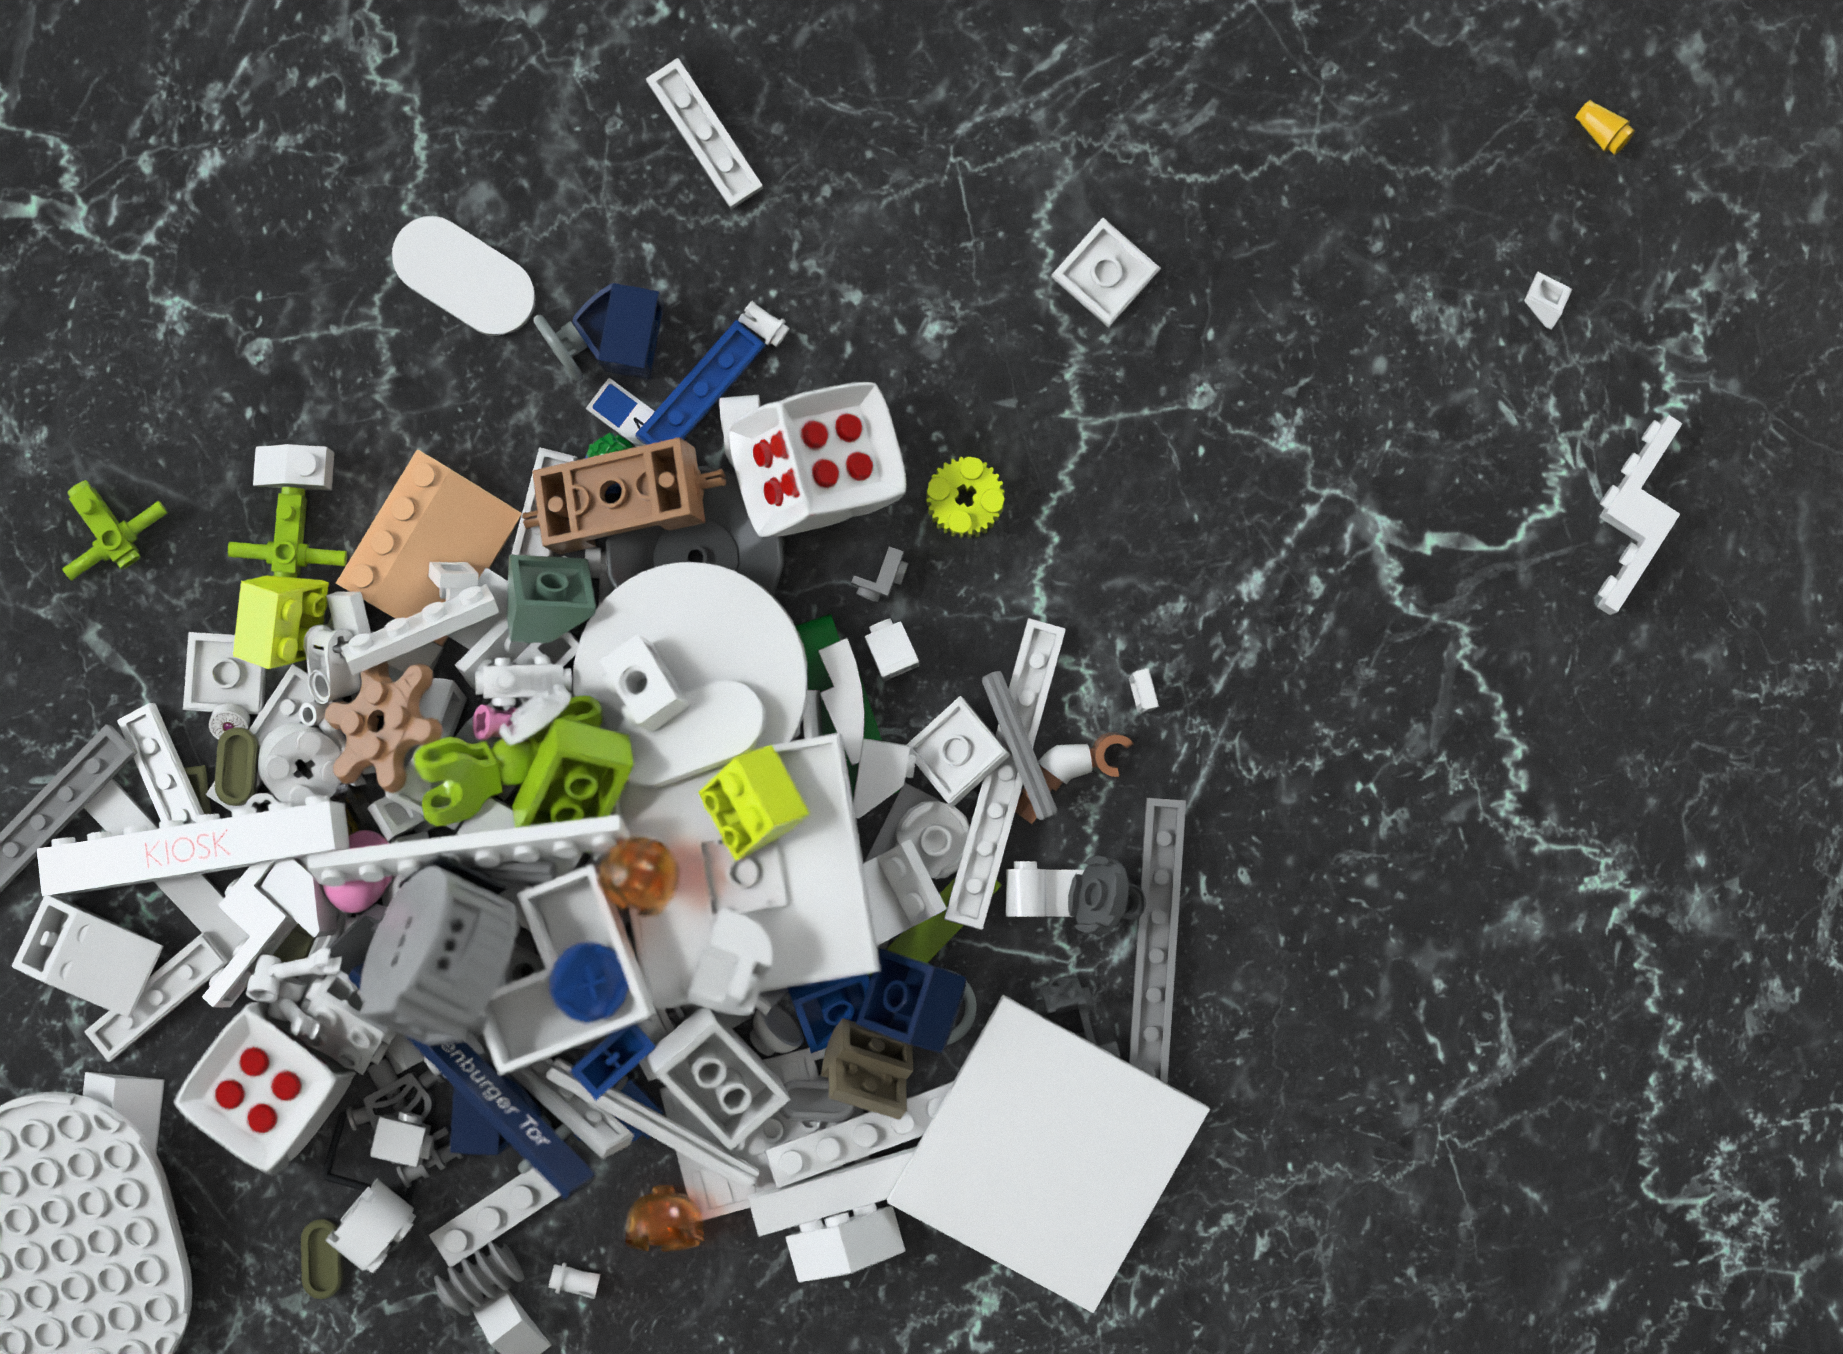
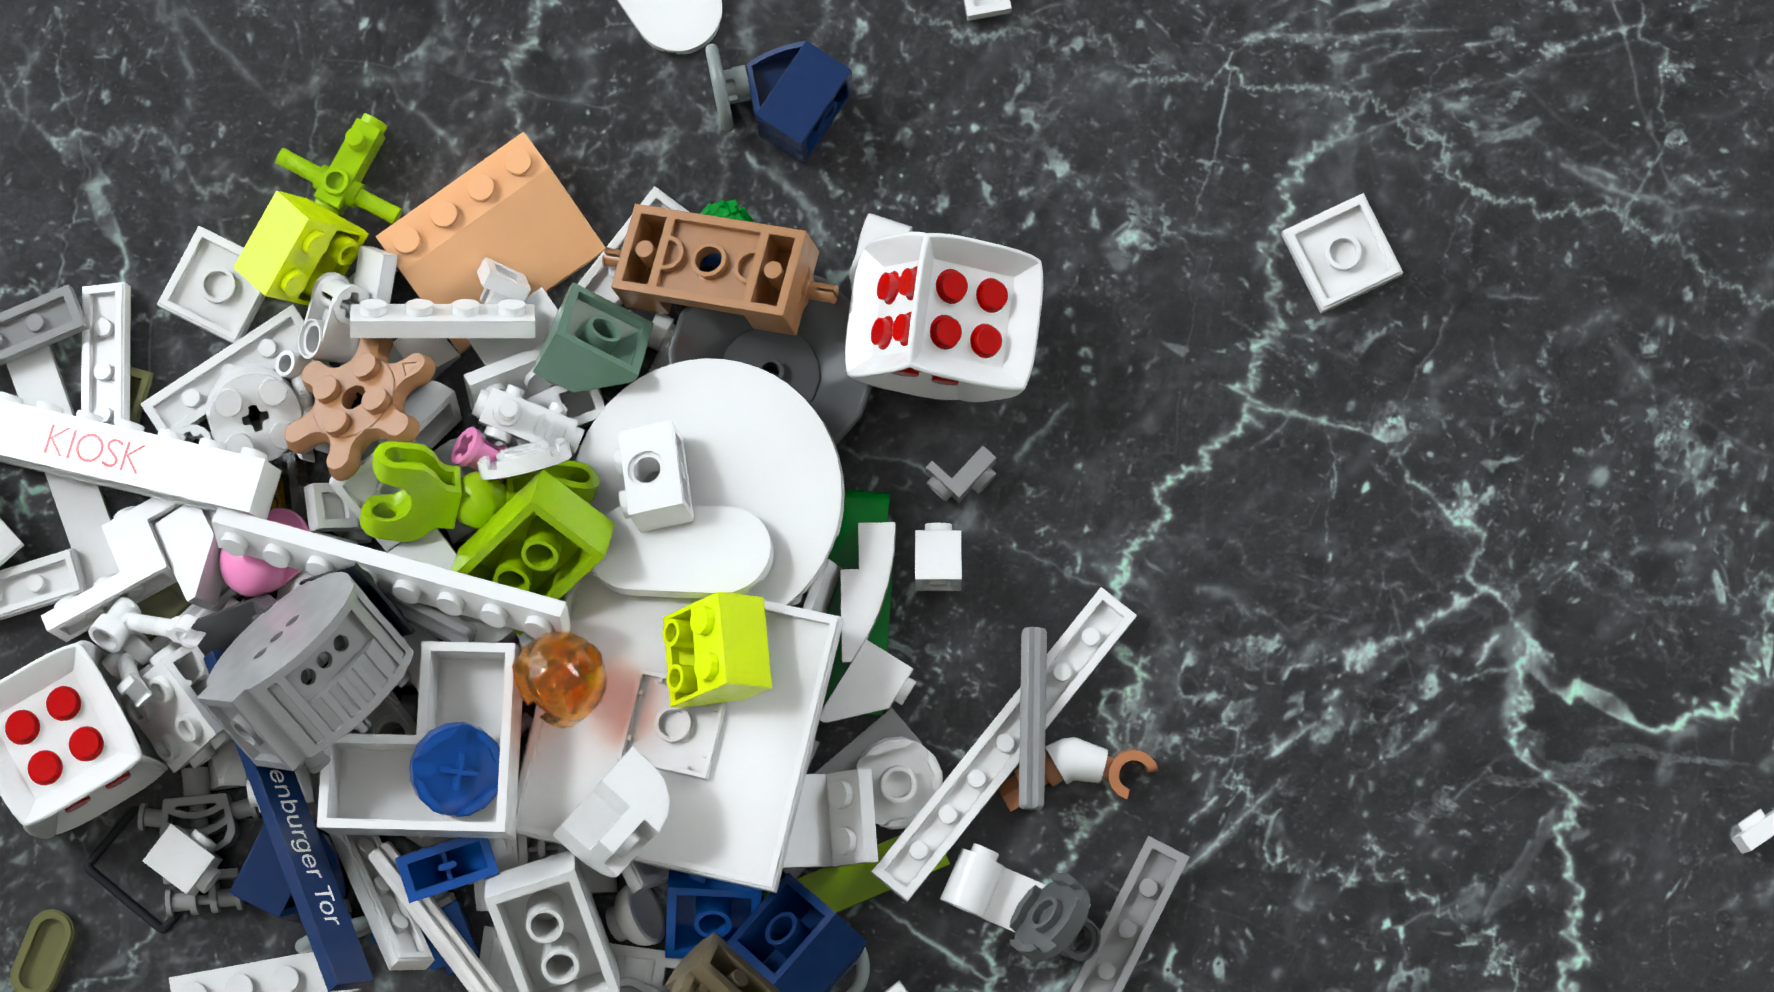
camera: 30 degrees right, 5 degrees down
(113, 538) = (163, 93): lime piece -> none
(226, 717) = (199, 339): white tile -> none
(236, 766) = (186, 387): olive tile -> none
(294, 467) = (388, 97): white slope -> none
(371, 1225) = (110, 938): white brick -> none
(620, 410) = (763, 189): tile -> none
(703, 386) = (858, 192): blue tile -> none
(764, 324) = (951, 156): white pin -> none
(957, 751) = (963, 697): white tile -> none
(967, 475) = (1091, 403): neon yellow brick -> none
(1143, 691) = (1192, 717): white tile -> none

